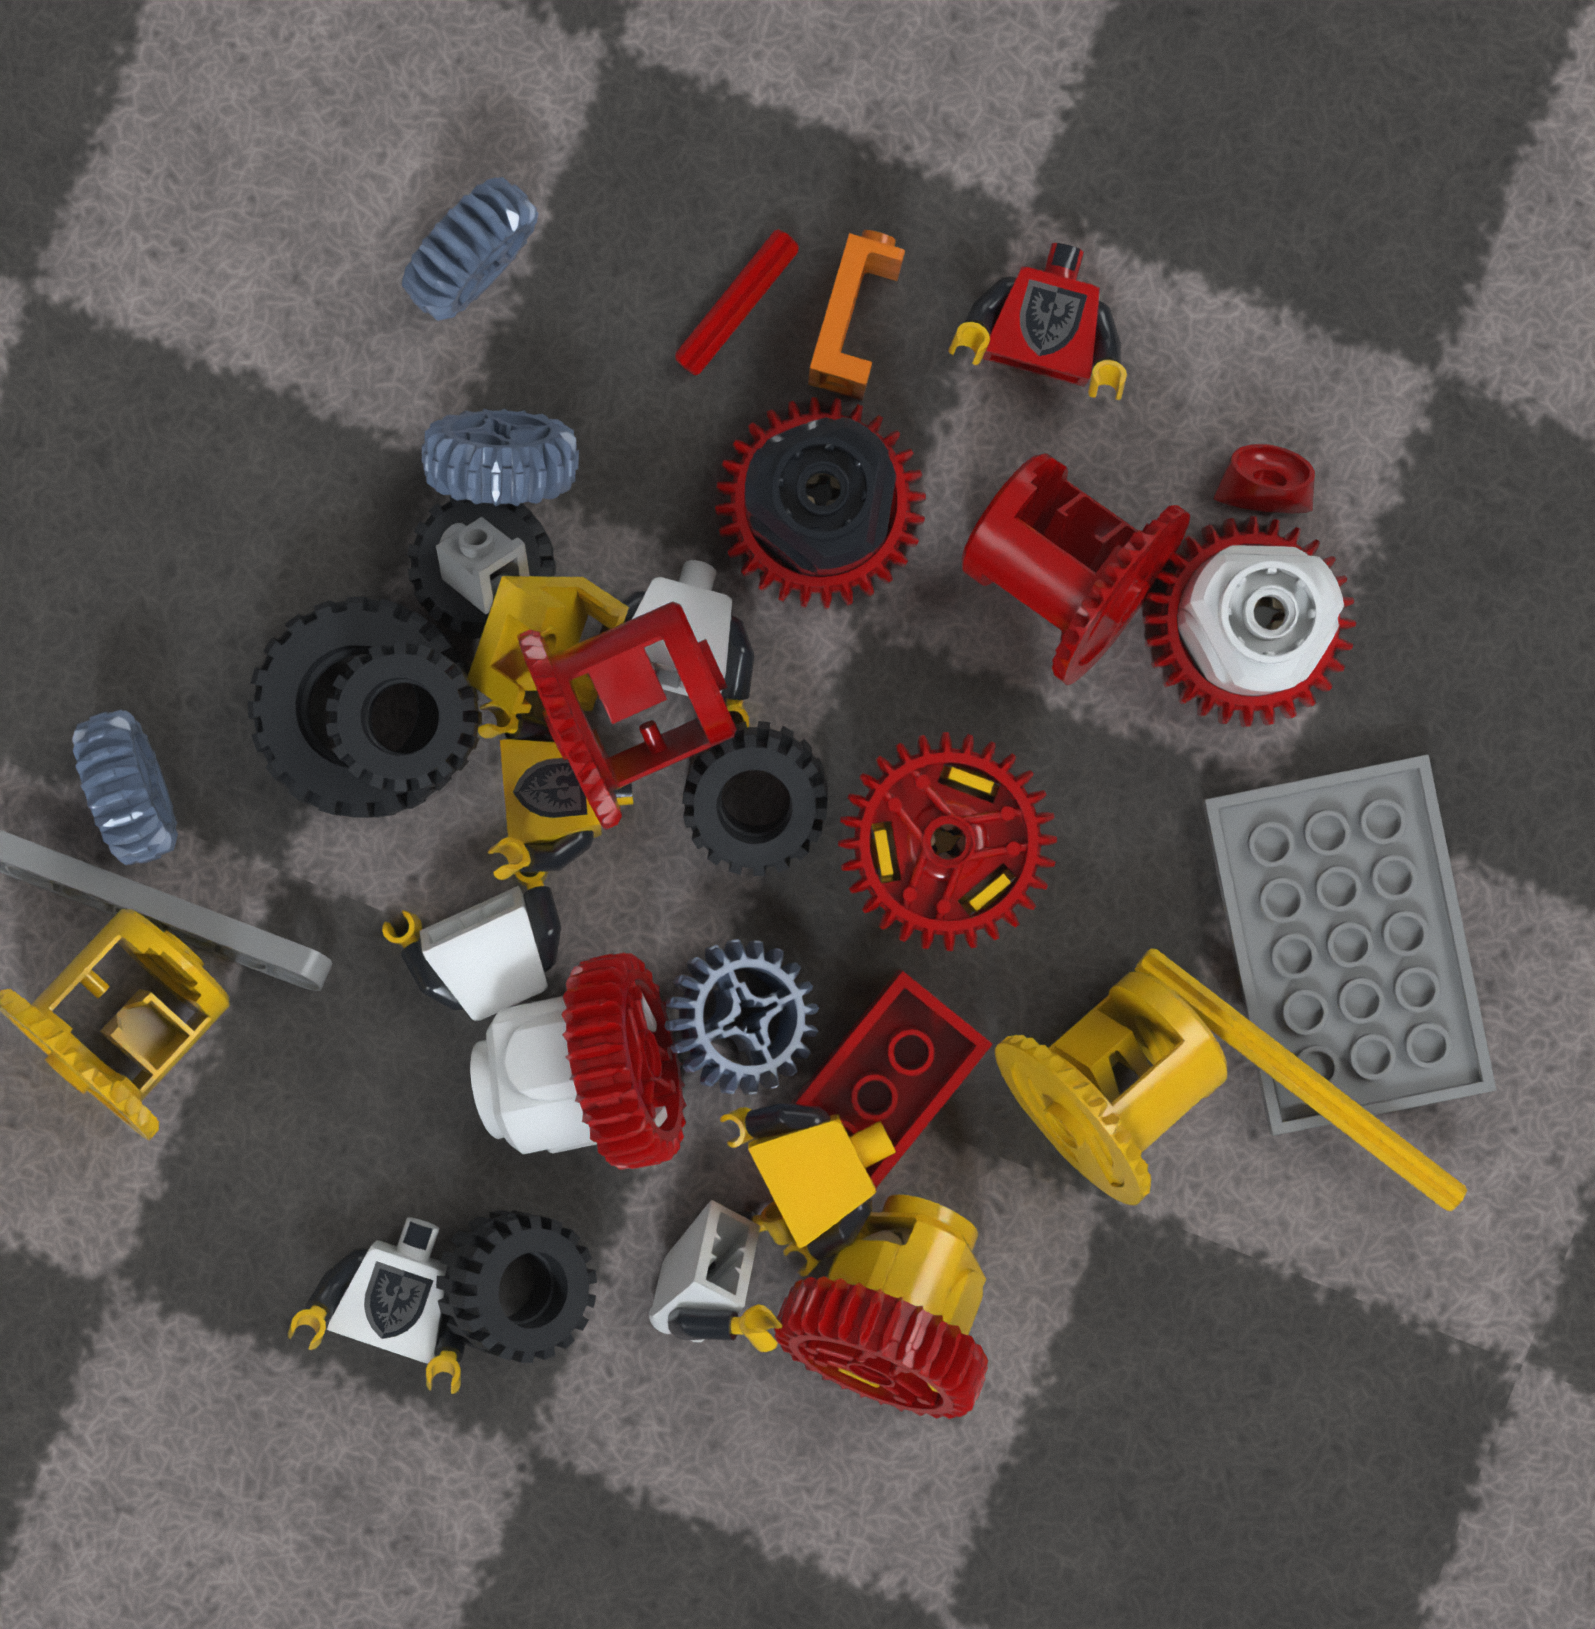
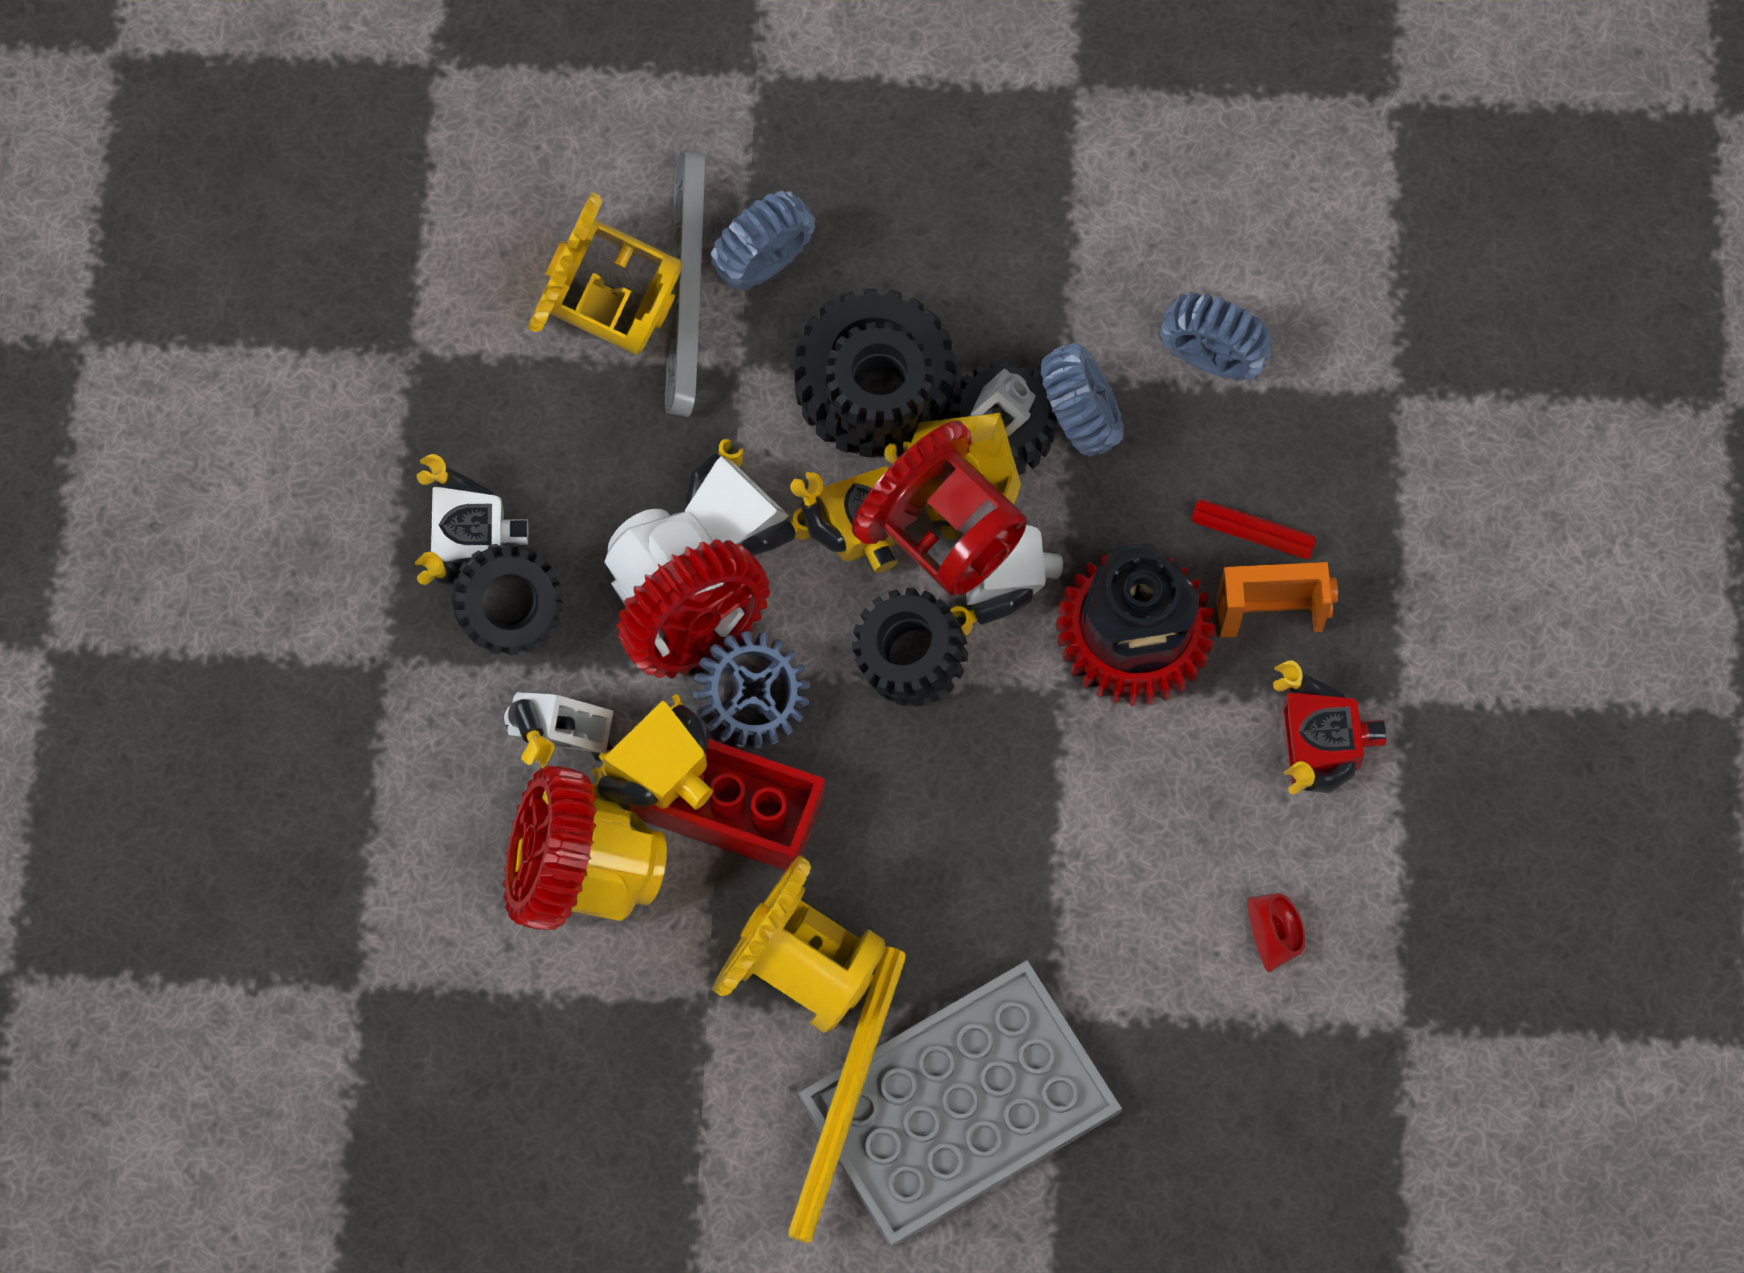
camera: 70 degrees right, 20 degrees down
(992, 841) = (929, 760): red piece -> none
(1070, 559) = (1159, 800): red piece -> none
(1249, 621) = (1168, 947): white piece -> none

